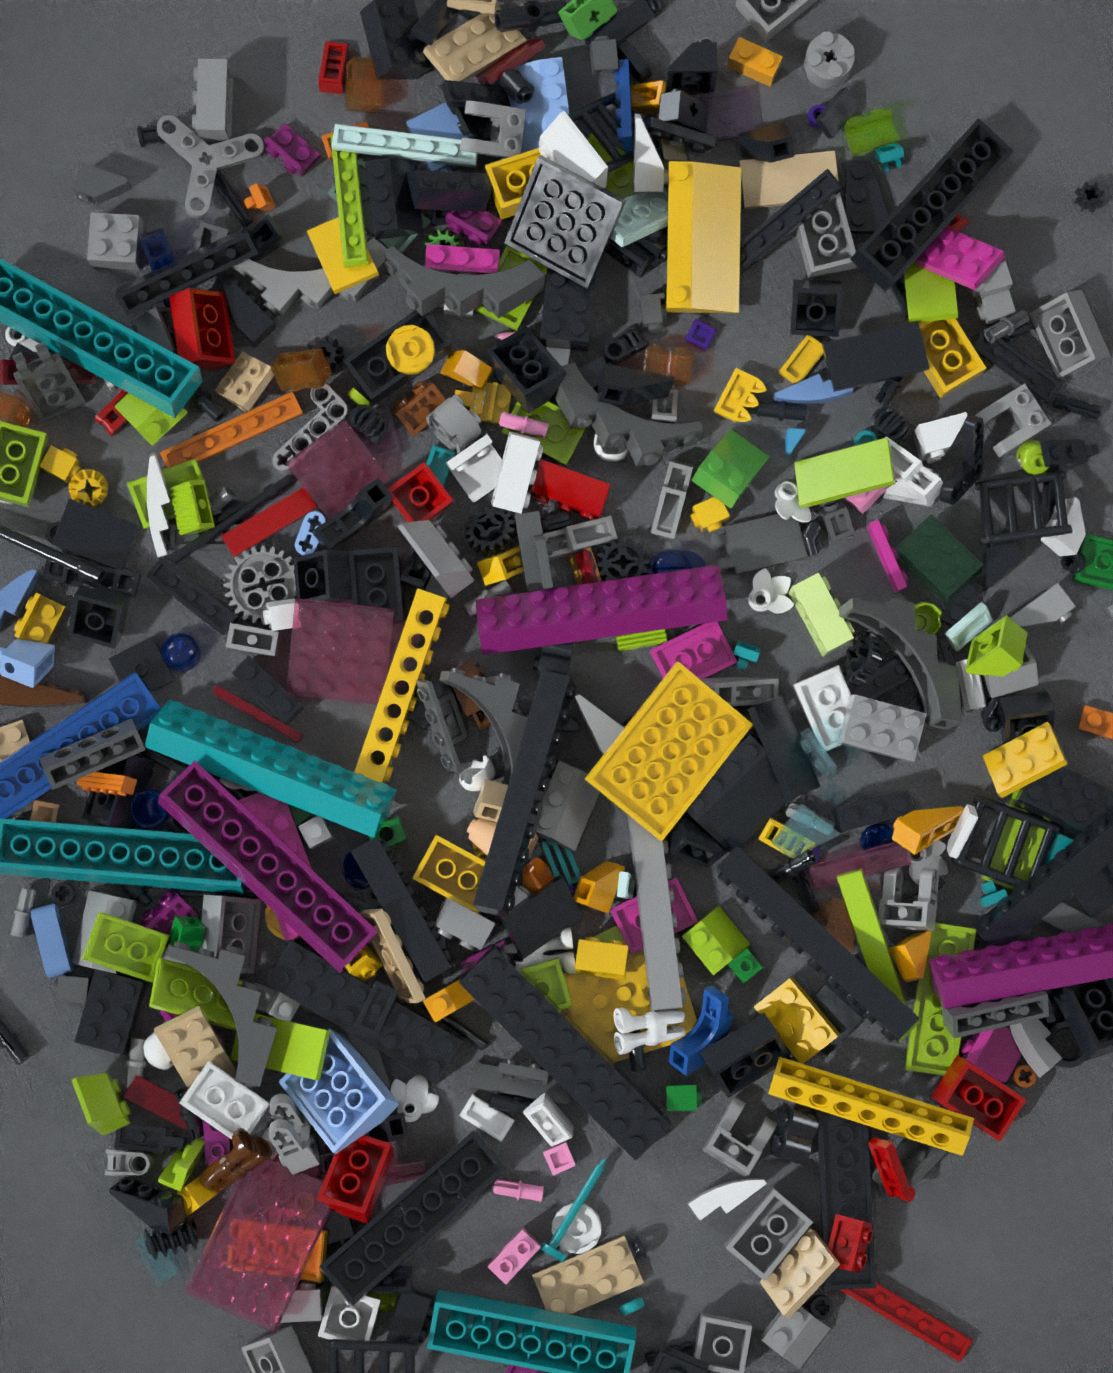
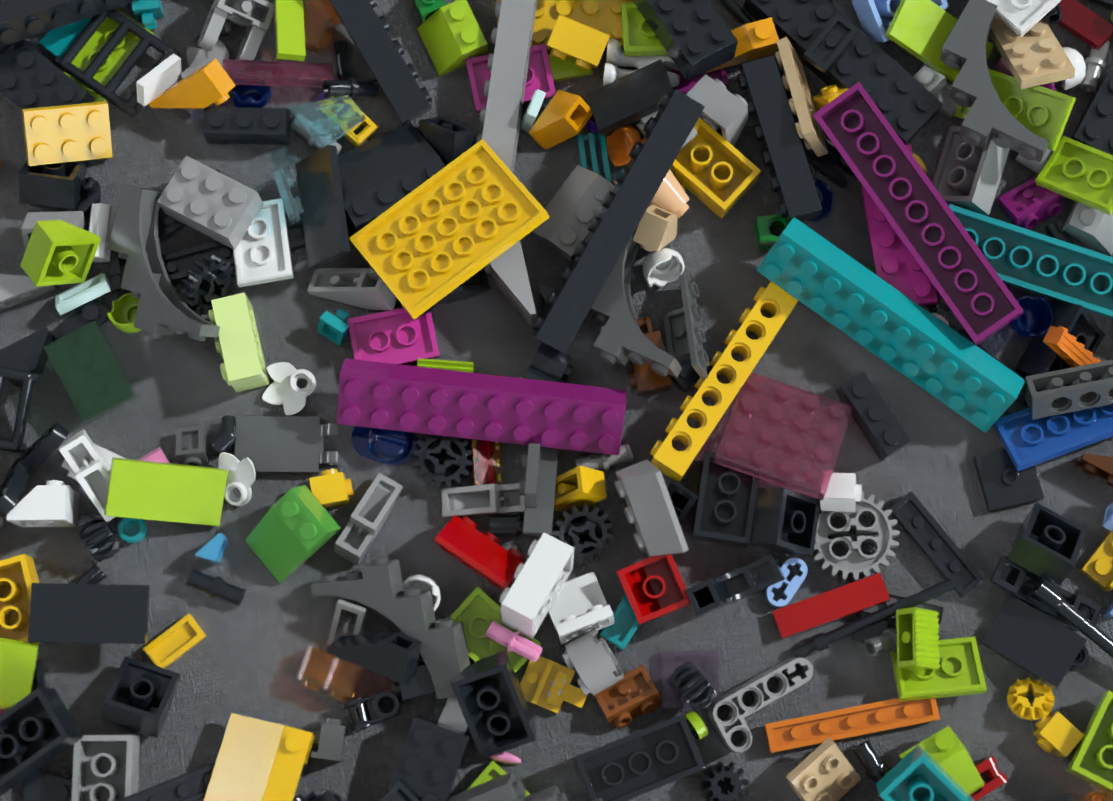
camera: 170 degrees left, 5 degrees down
(157, 496) = (955, 658): white slope -> none
(181, 652) = (960, 486): clear blue hair -> none
(187, 930) = (1016, 176): green brick -> none
(253, 639) = (879, 474): light grey brick -> none
(258, 714) = (891, 395): dark red tile -> none
(301, 370) = (756, 770): clear orange brick -> none
(316, 832) = (856, 246): white brick -> none
(335, 468) = (741, 644): clear pink plate -> none
(410, 349) = (624, 760): yellow tile -> none
(466, 369) = (563, 727): light orange slope -> none
(700, 335) = (282, 702): dark purple tile -> none
(738, 395) = (260, 616): yellow plate -> none
(810, 392) = (179, 601): medium blue slope -> none
(888, 556) = (147, 393): dark pink plate -> none

